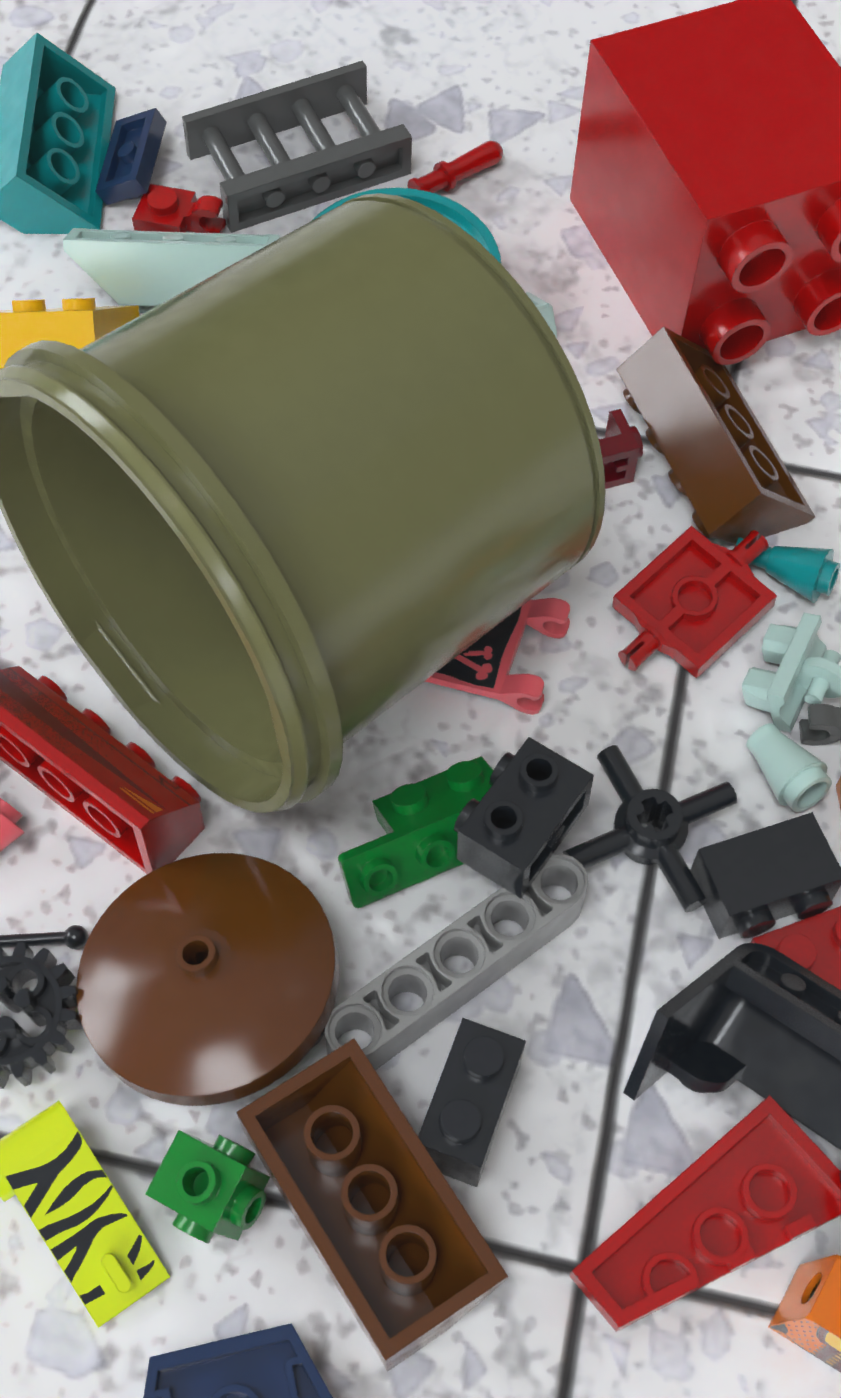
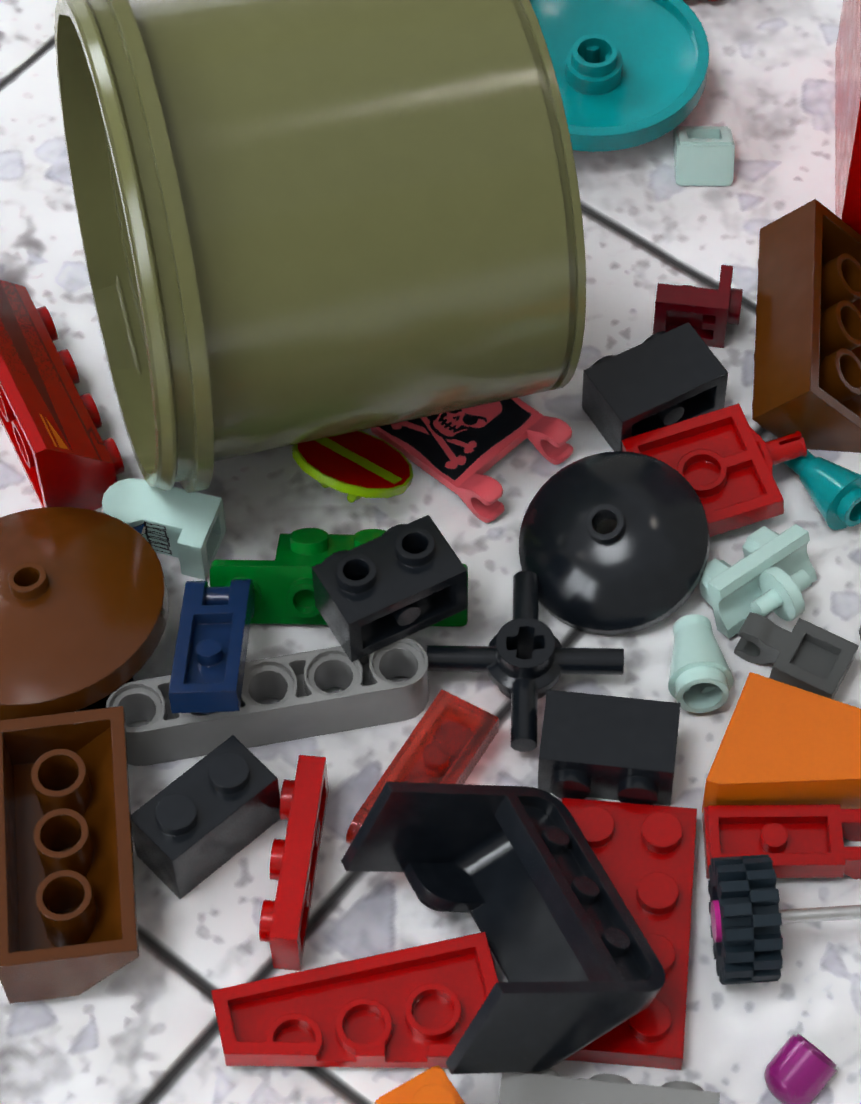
camera: 30 degrees right, 5 degrees down
(268, 836) = (171, 521): none -> light aqua leg
(399, 943) = (211, 647): none -> dark blue plate
(418, 717) = (355, 465): none -> red piece
(571, 1108) = (295, 863): none -> red plate
(627, 968) = (439, 749): none -> clear red plate
(629, 533) = (653, 385): none -> black brick
(655, 727) = (624, 576): none -> black dish

